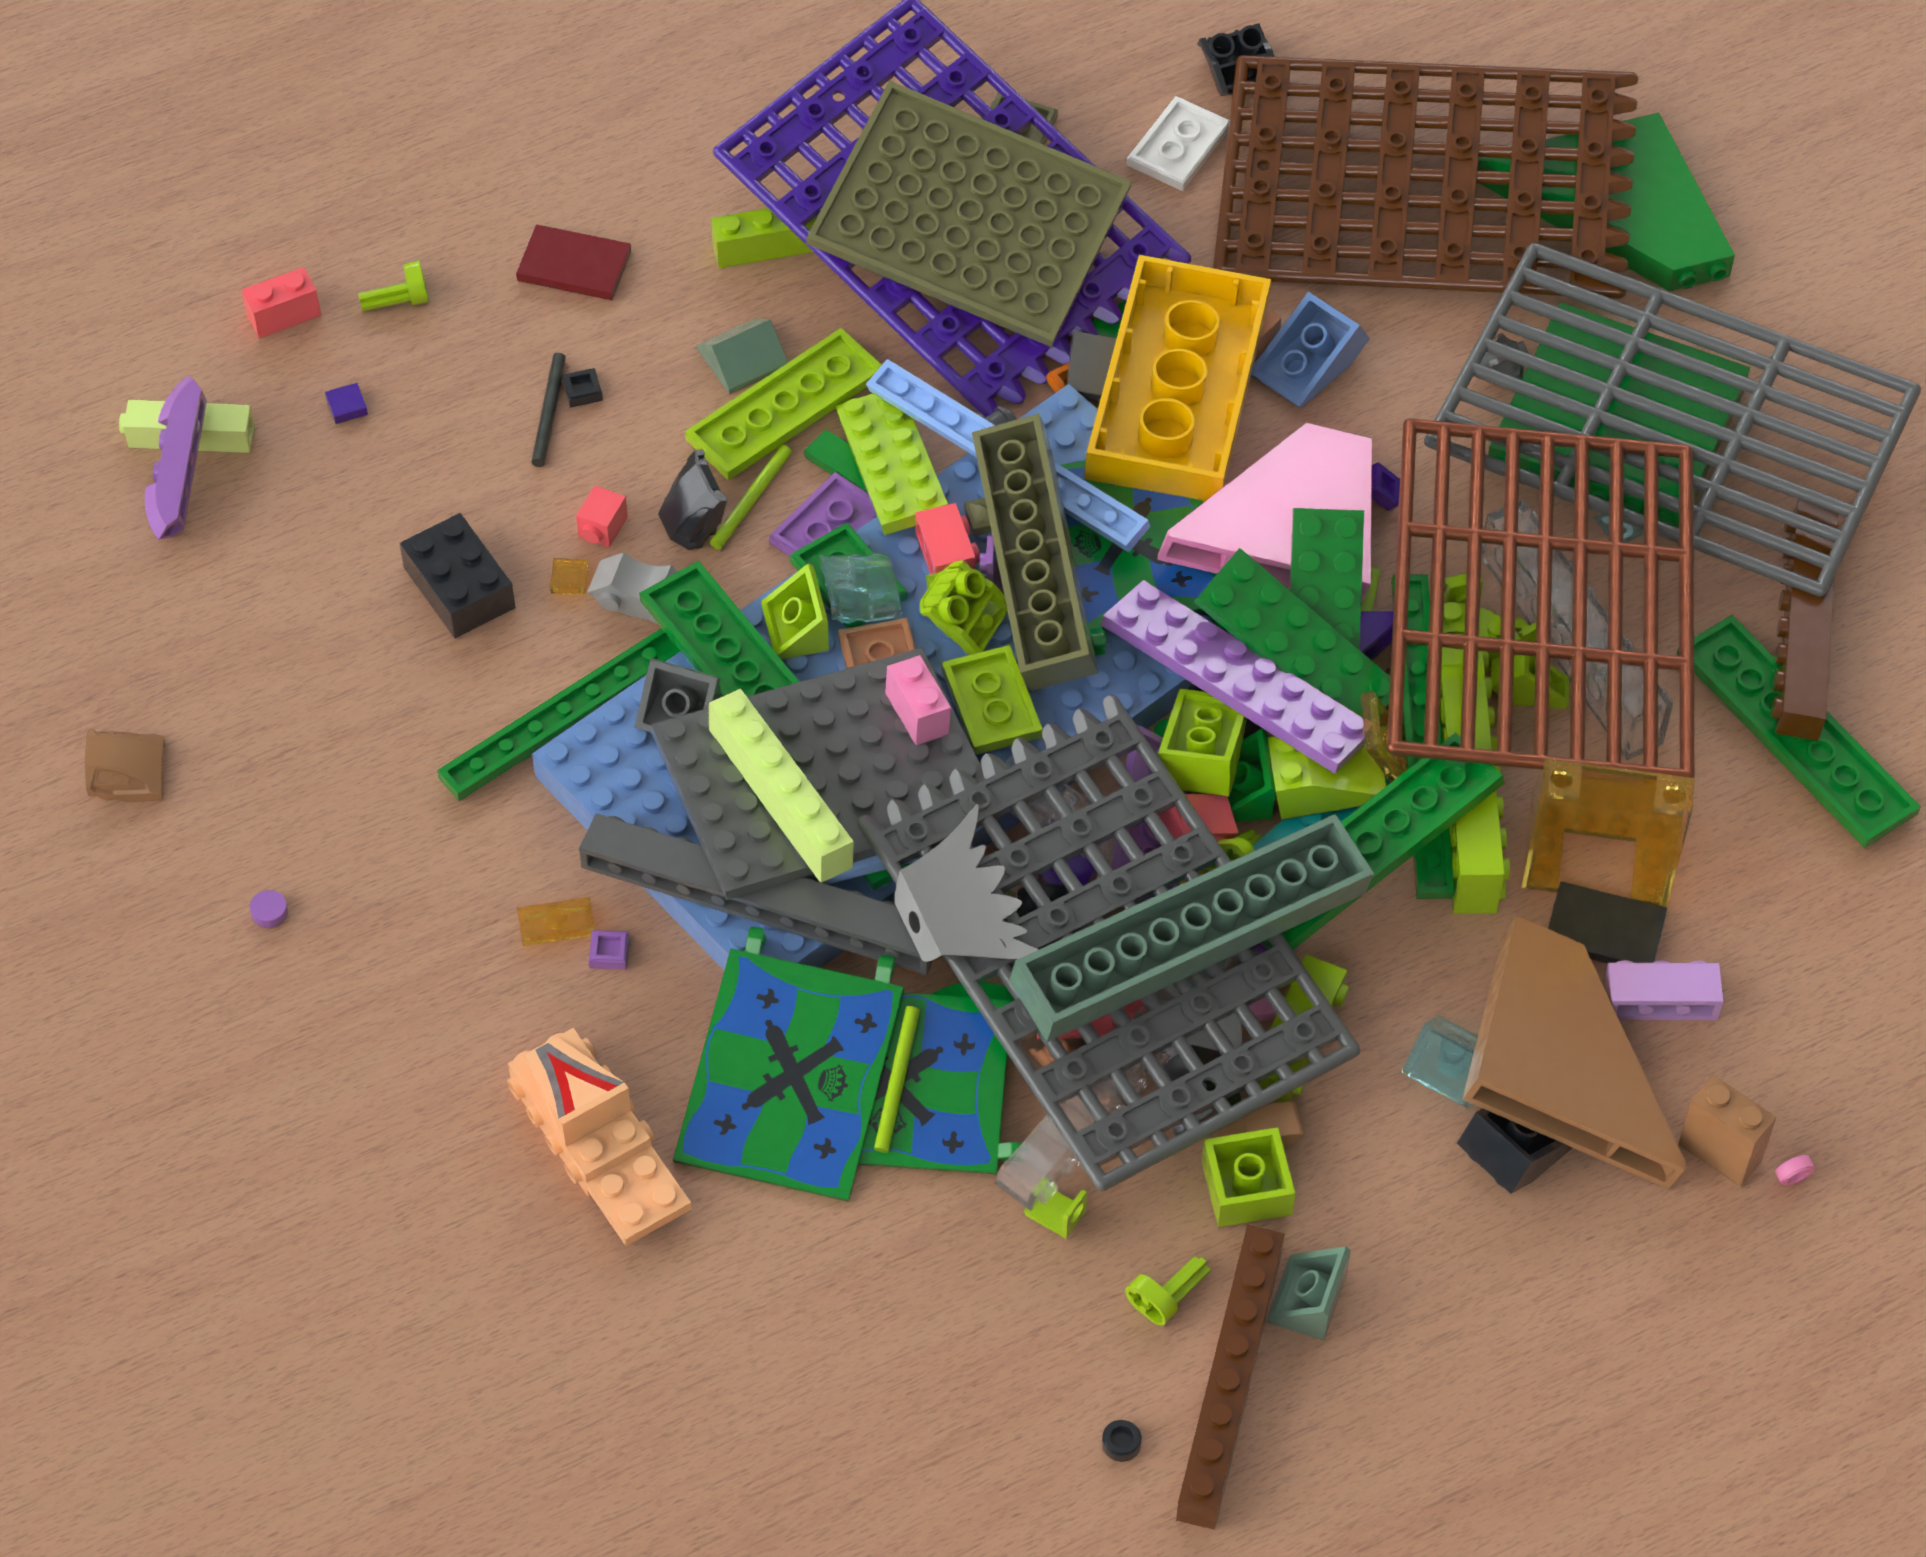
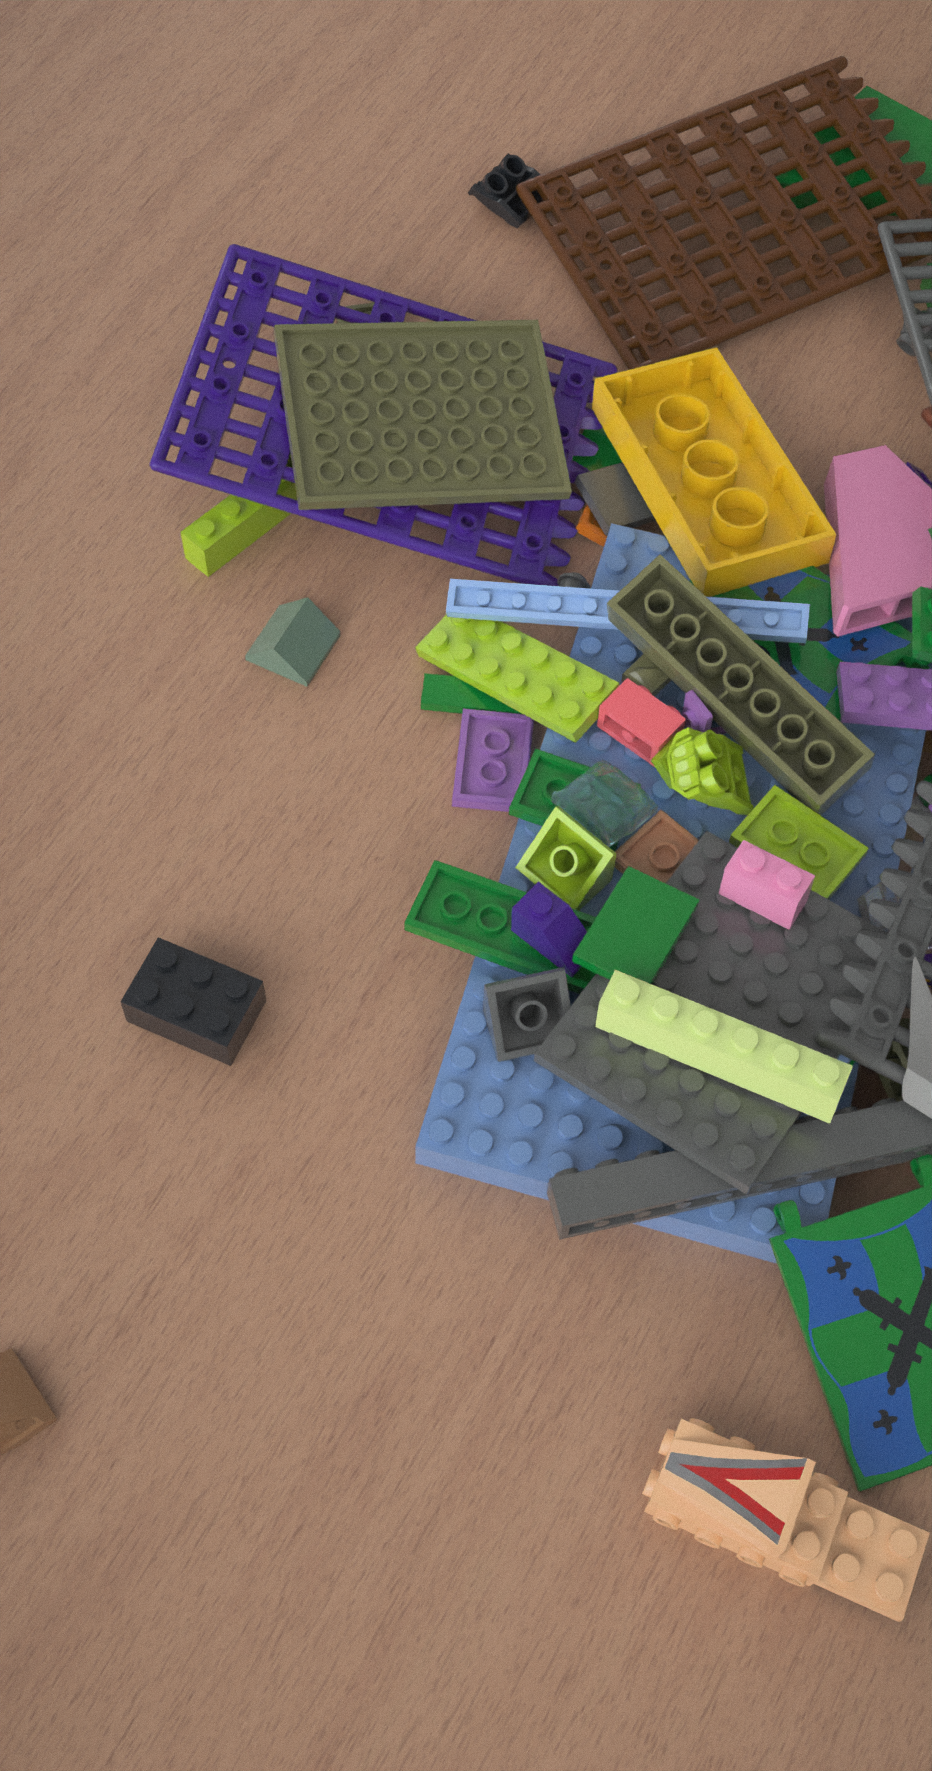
camera: 35 degrees left, 5 degrees up
(268, 908) = (260, 1475): medium lavender tile -> none
(548, 409) = (154, 789): pearl dark grey bar -> none
(552, 717) = (396, 1089): green plate -> none
(556, 921) = (554, 1304): clear yellow plate -> none
(569, 576) = (297, 940): clear yellow tile -> none
(573, 262) = (72, 637): dark red tile -> none
(582, 387) = (169, 751): black tile -> none
(601, 516) = (287, 865): coral brick -> none
(609, 949) = (626, 1302): medium lavender tile -> none
(620, 581) = (371, 917): light grey brick -> none
(693, 504) = (368, 806): black slope -> none
(737, 649) = (548, 926): none -> dark purple slope
(750, 497) = (404, 772): lime bar -> none
(783, 404) = (368, 671): lime plate -> none
(796, 680) = (636, 928): none -> green tile
(1178, 143) = (515, 282): white tile -> none
(1309, 351) = (775, 387): medium blue slope -> none

